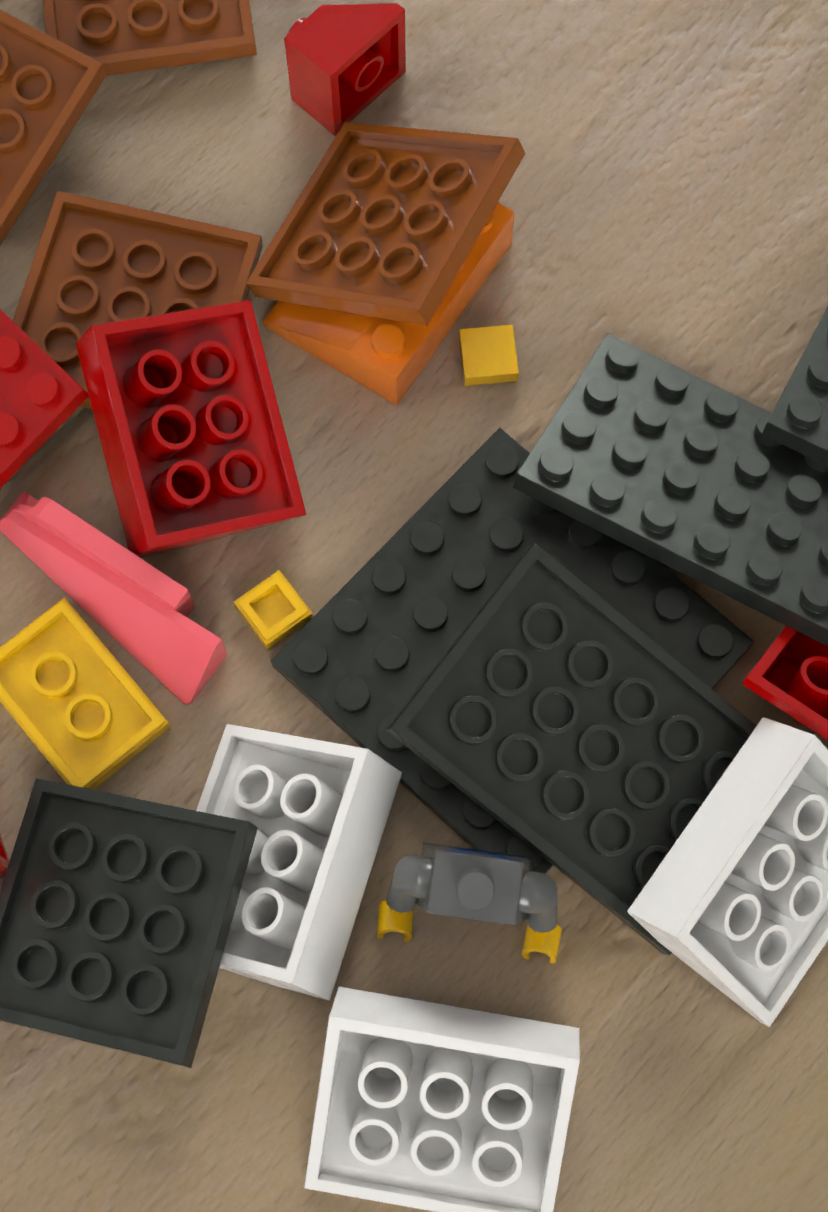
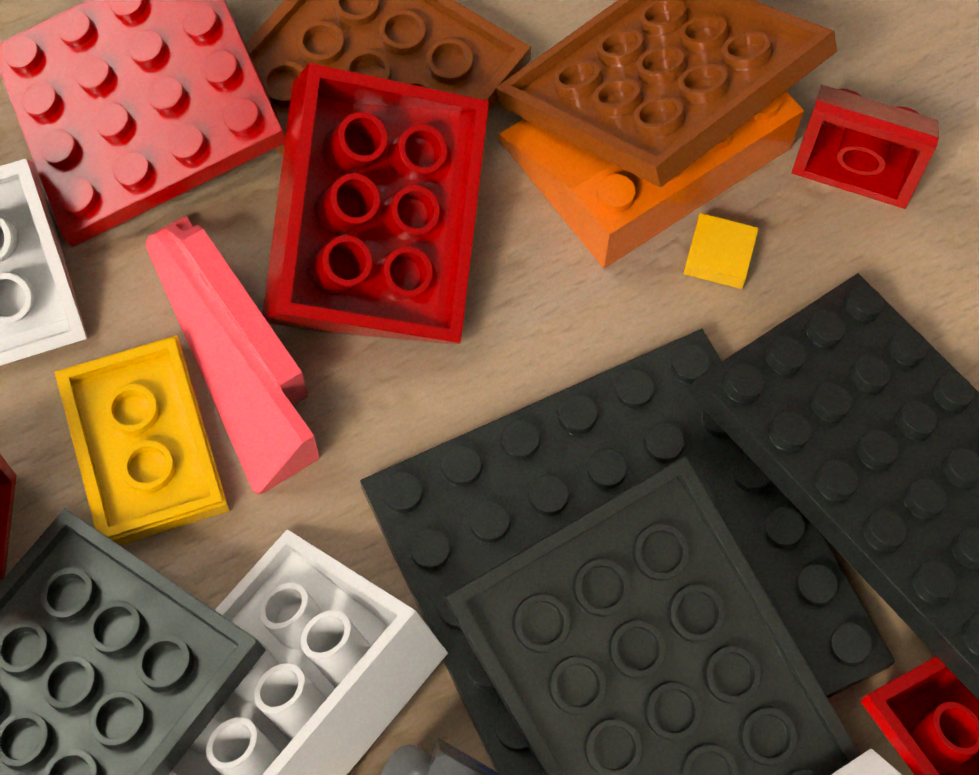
camera: 20 degrees right, 5 degrees down
(273, 610) = (386, 429): yellow tile -> none
(574, 221) = (866, 146): none -> red slope

